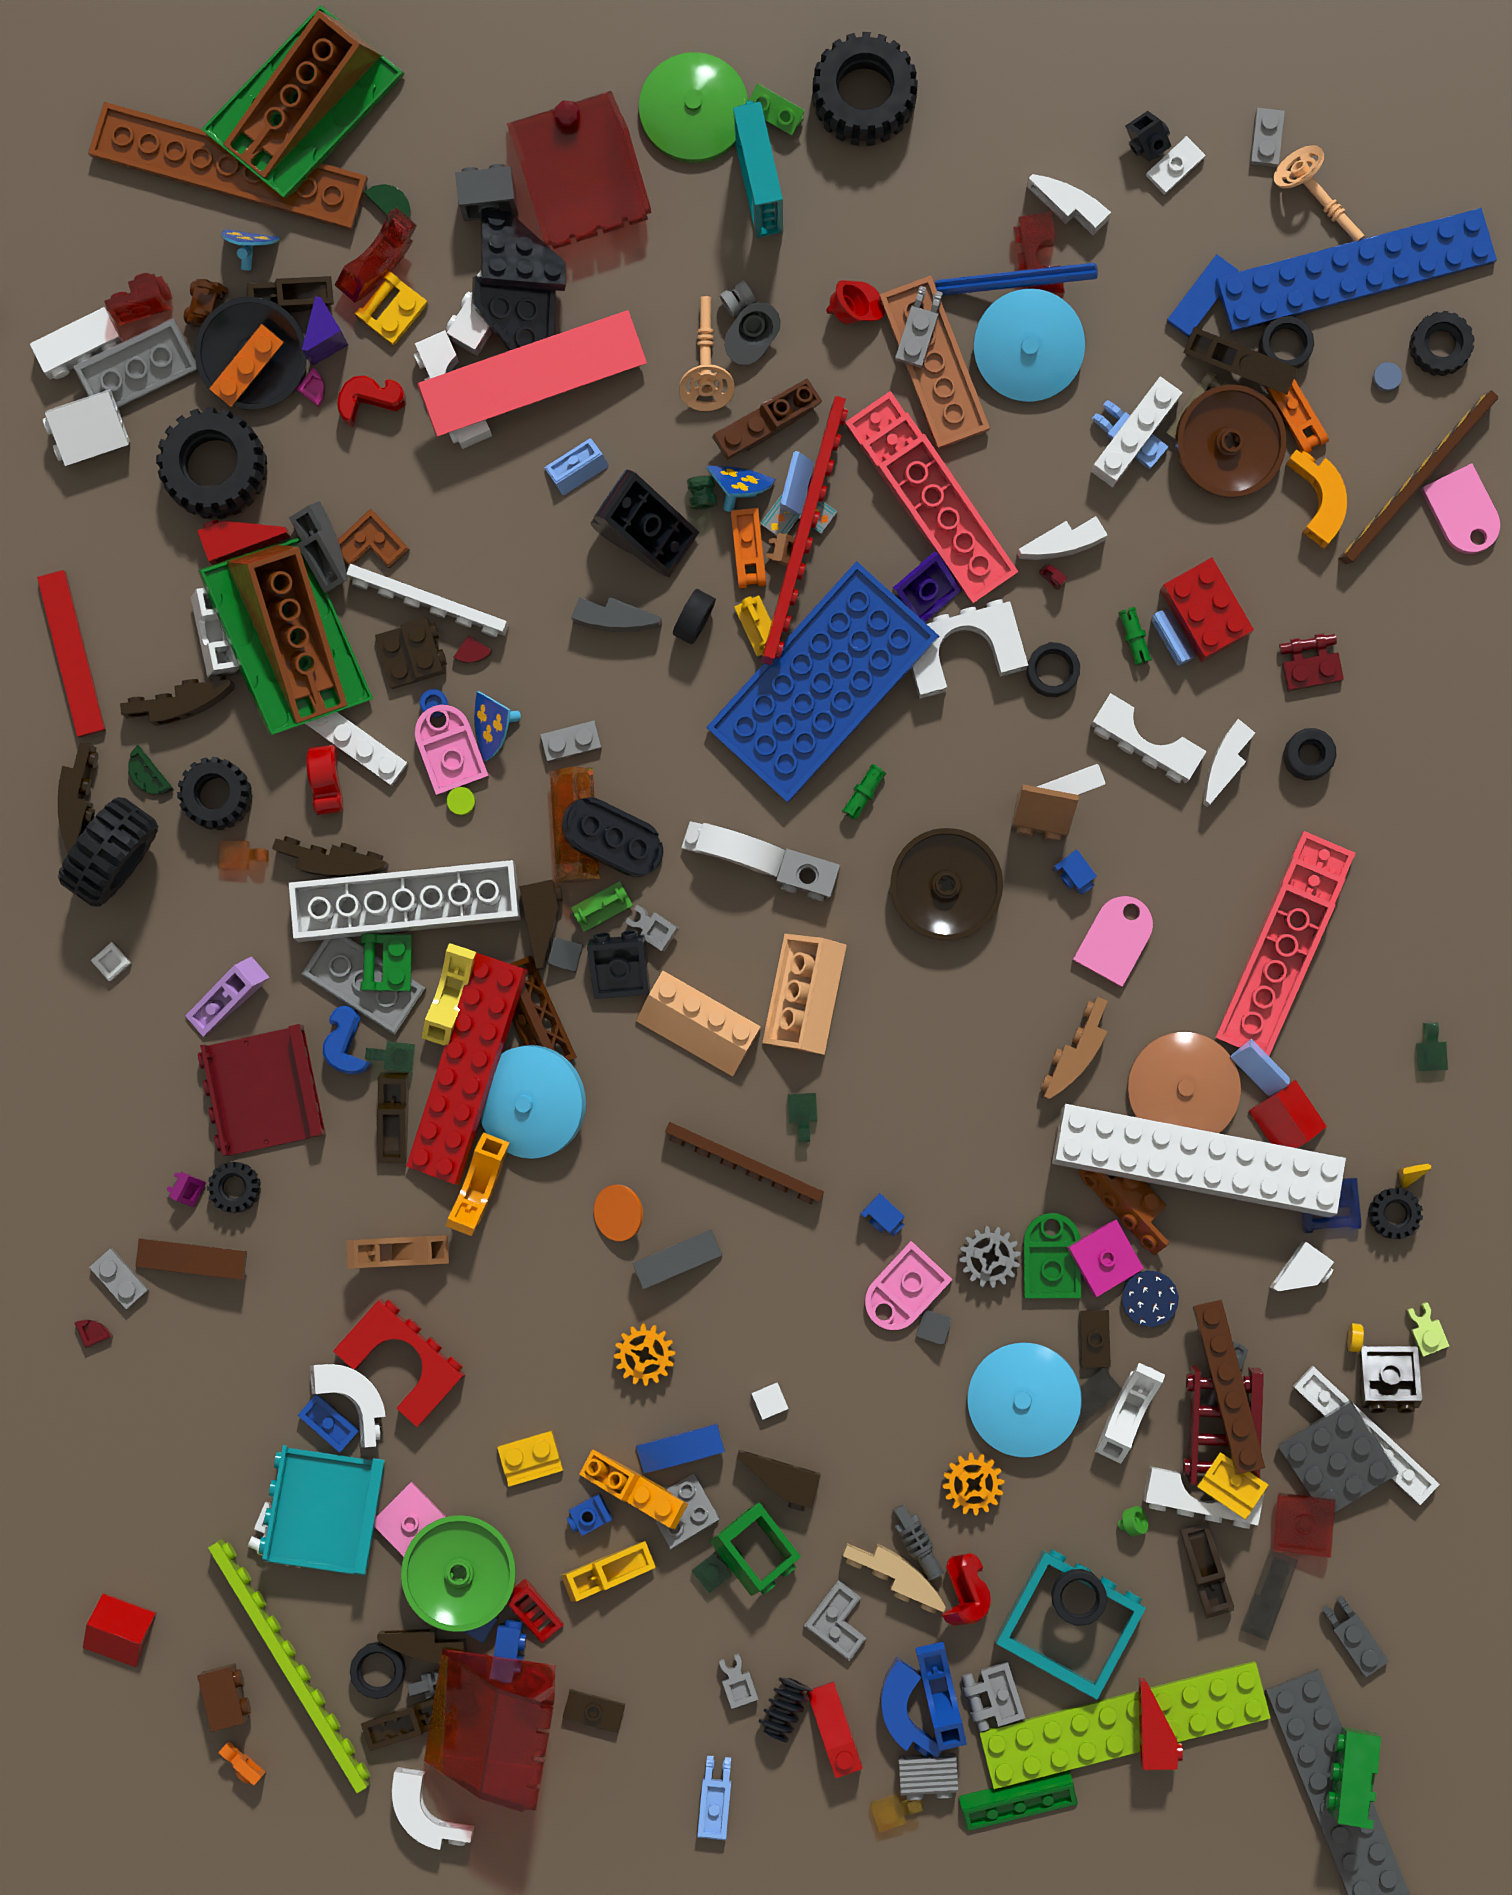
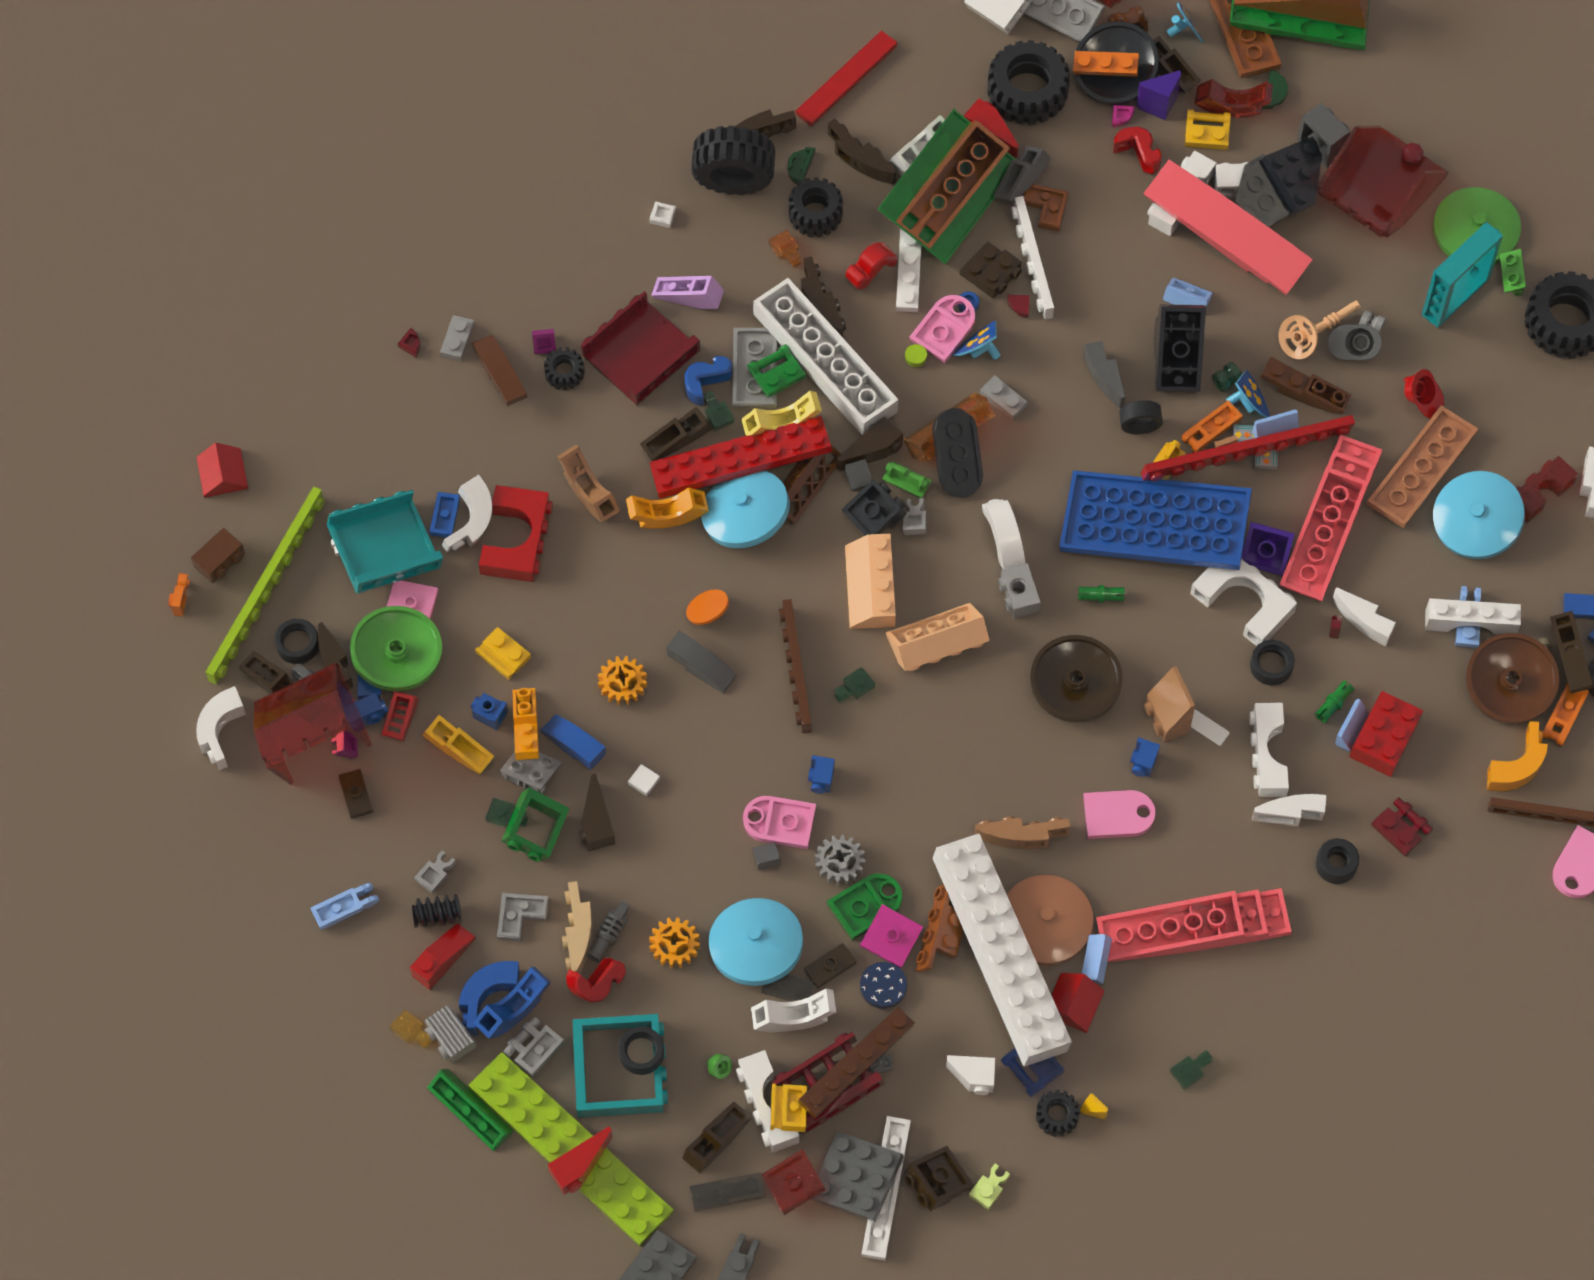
camera: 50 degrees right, 20 degrees down
(918, 330) = (1436, 440): light grey hinge -> none
(1017, 279) = (1515, 478): blue axle -> none
(1355, 1337) = (950, 1137): yellow tile -> none

